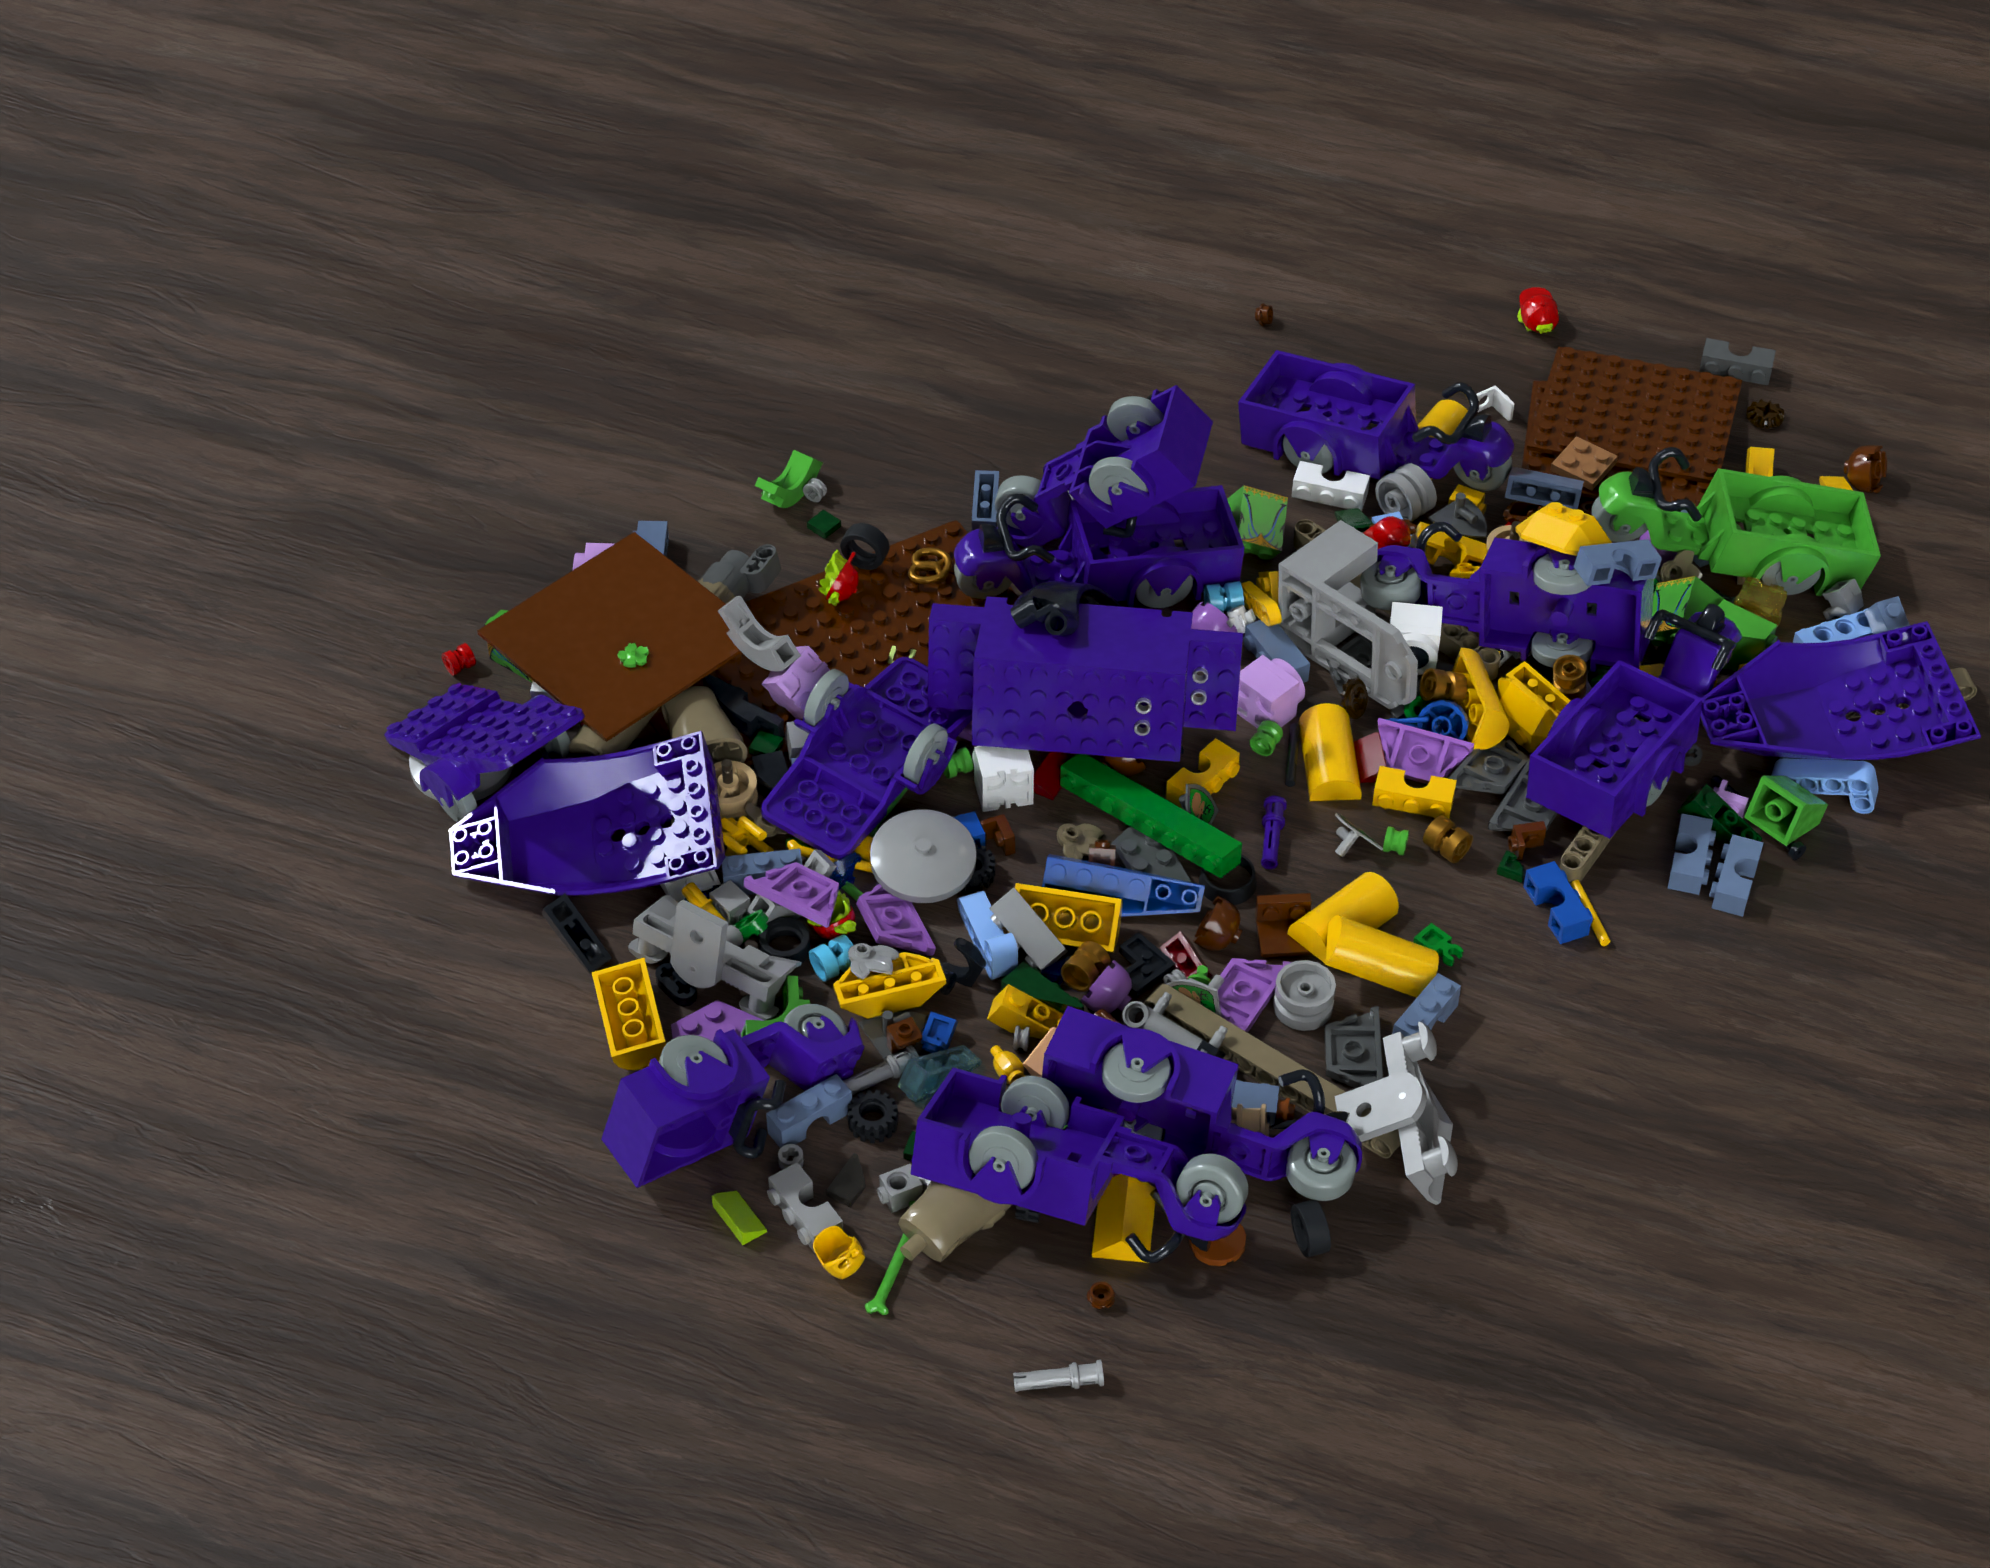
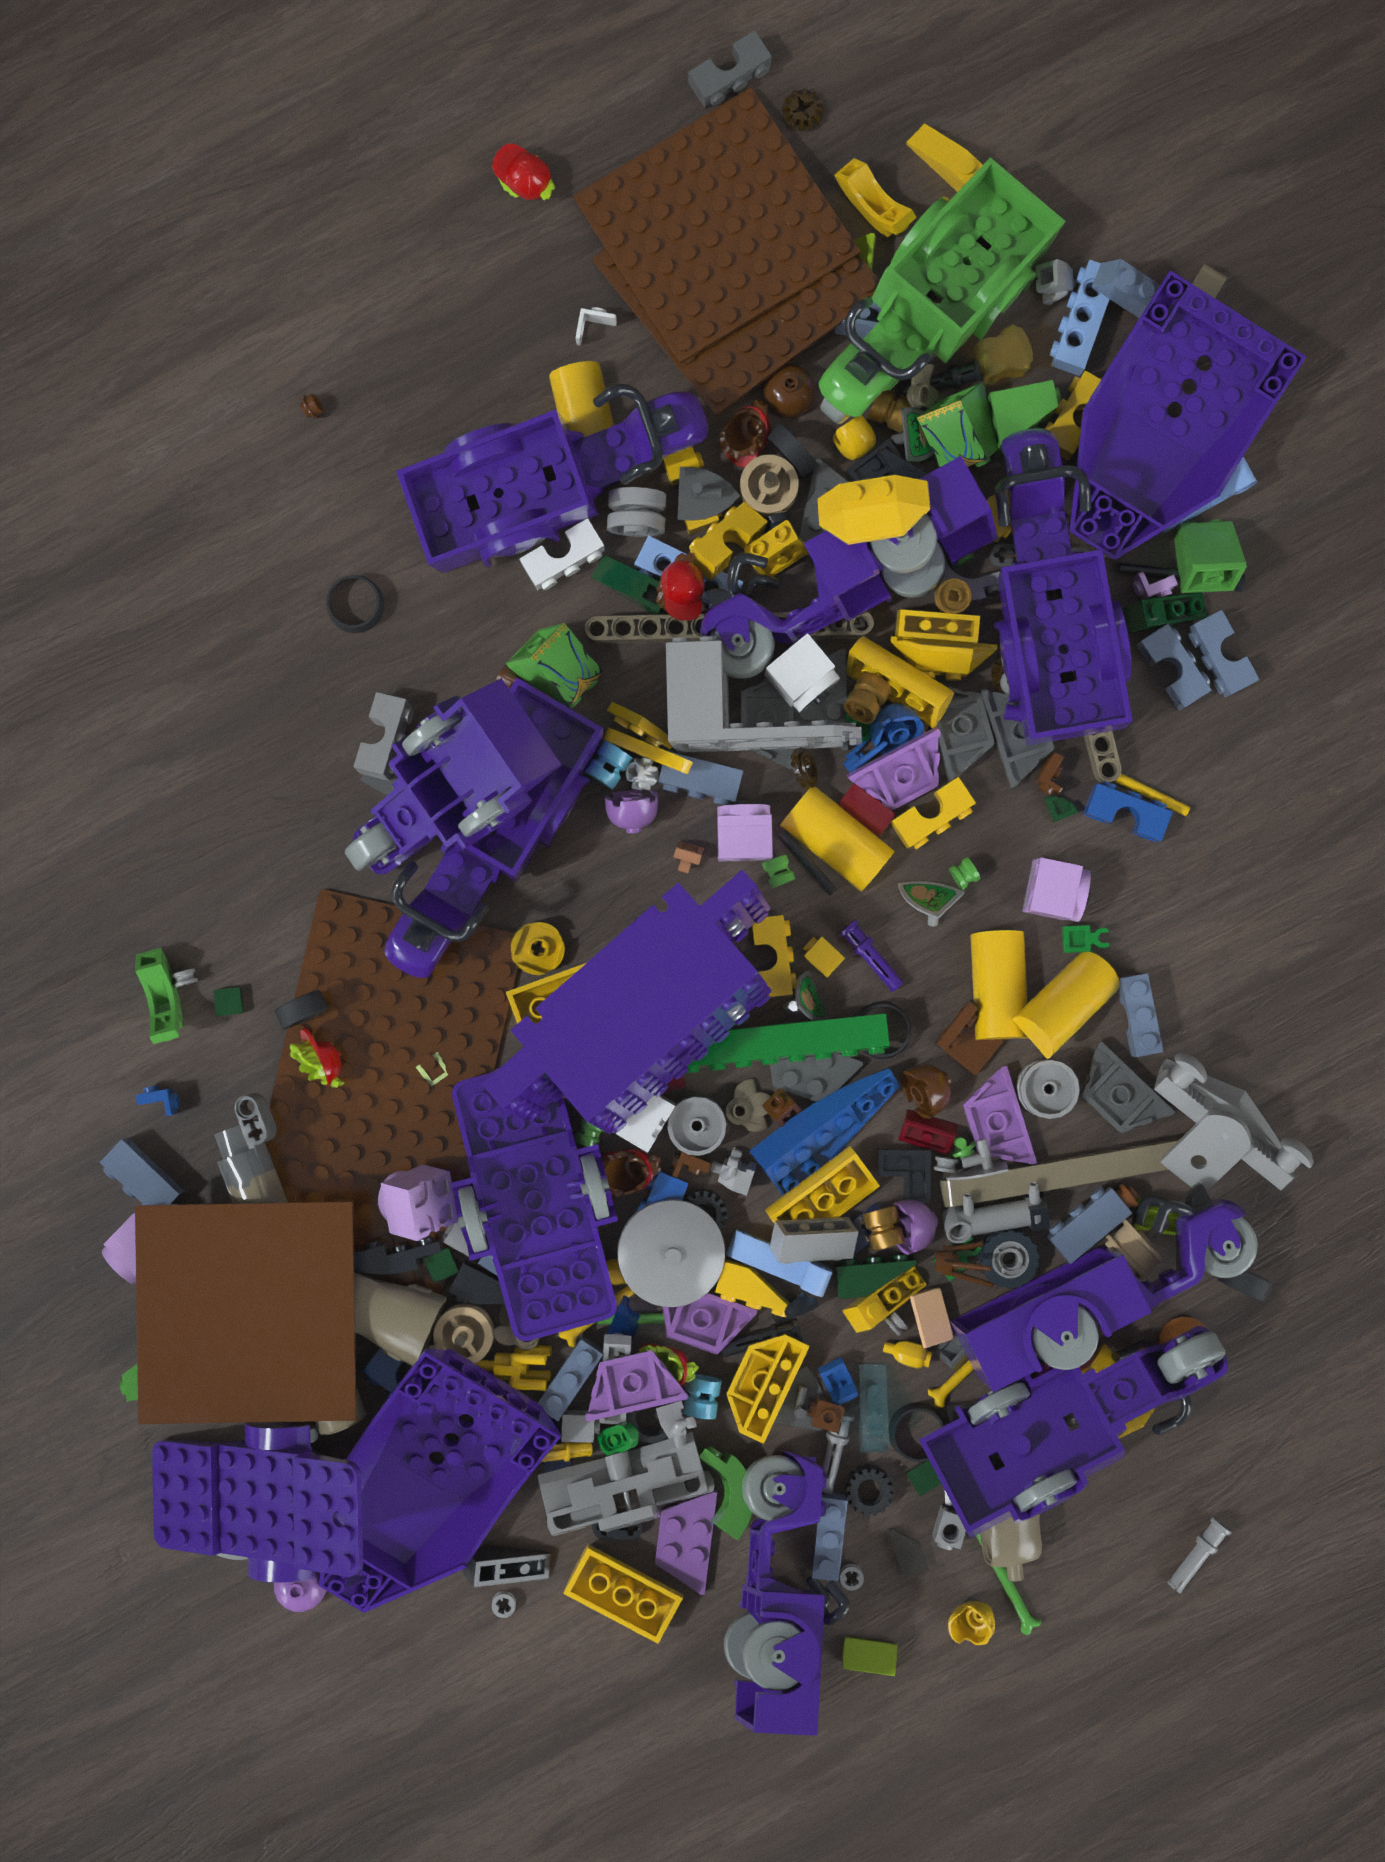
camera: 45 degrees left, 40 degrees up
(431, 828) = (300, 1595): none -> medium lavender cylinder
(458, 659) = (126, 1425): red wheel -> none
(541, 951) = (495, 1605): none -> light grey bush
(633, 655) = (284, 1326): bright green plant -> none
(716, 528) = (154, 1094): none -> blue bracket
(756, 643) = (365, 1223): light grey arch -> none
(790, 1191) = (929, 1614): light grey arch -> none
(799, 937) = (673, 1422): none -> light grey piece
(874, 959) = (746, 1384): light grey plate -> none
(930, 566) = (360, 965): pearl gold piece -> none
(946, 923) = (746, 1284): none -> yellow slope
(954, 795) = (629, 1170): none -> reddish brown hair
(984, 496) = (334, 862): sand blue brick -> none
(1024, 865) = (734, 1173): none -> light grey piece
(1033, 811) = (710, 1133): none -> light grey wheel
(1055, 600) = (561, 981): black panel -> none
(1101, 1289) = (1166, 1466): reddish brown plate -> none
(1238, 804) = (822, 956): none -> yellow brick
(1448, 839) = (991, 835): pearl gold wheel -> none
(1450, 891) = (1057, 890): none -> lavender piece
(1543, 488) = (746, 406): sand blue brick -> none
(1584, 462) = (747, 342): medium nougat plate -> none
(1635, 558) = (961, 482): sand blue arch -> none
(1866, 468) = (941, 103): reddish brown cylinder -> none

